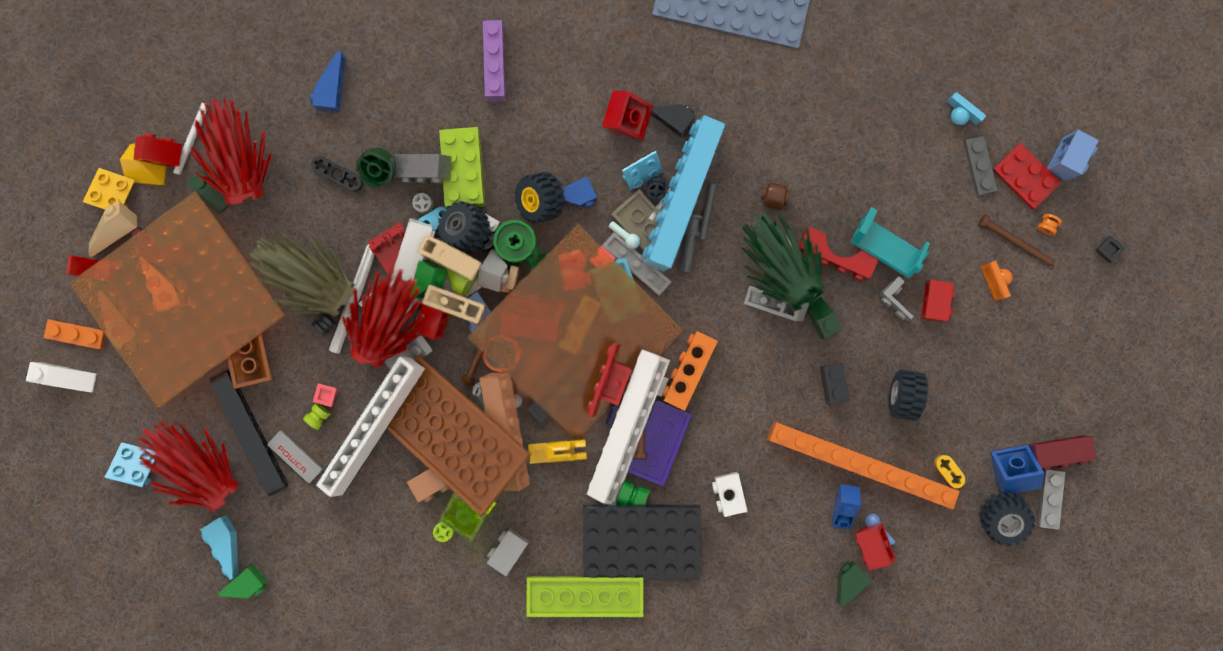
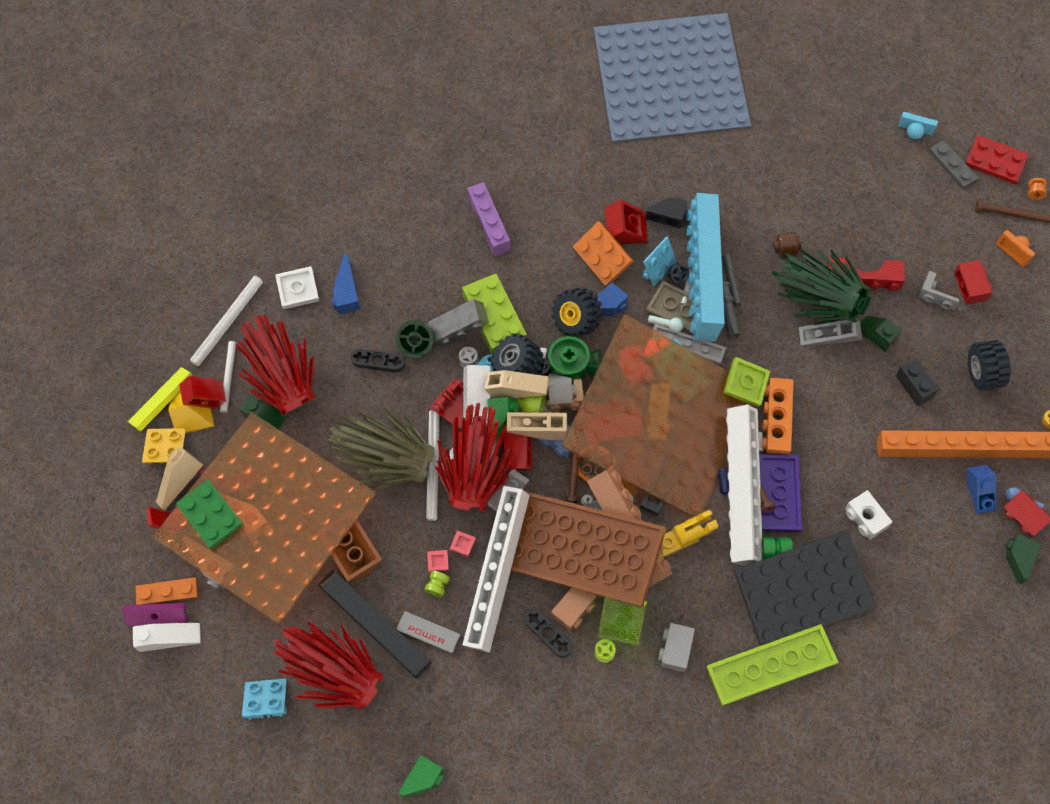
camera: 15 degrees left, 20 degrees down
(57, 352) = (154, 614): none -> magenta tile
(119, 140) = (159, 400): none -> neon yellow tile
(126, 281) = (209, 514): none -> green plate
(206, 78) = (226, 321): none -> white axle
(223, 542) = (382, 738): medium azure slope -> none
(284, 68) = (297, 287): none -> white plate
(324, 324) = (413, 495): black wheel -> none
(353, 386) = (463, 544): none -> coral plate
(411, 506) = (533, 626): none -> black beam
(591, 140) = (603, 254): none -> orange plate
(612, 383) = (713, 448): red bracket -> none
(673, 327) = (746, 382): none -> lime plate
(888, 247) = (907, 252): teal panel -> none
(1073, 155) = (1028, 126): medium blue brick -> none

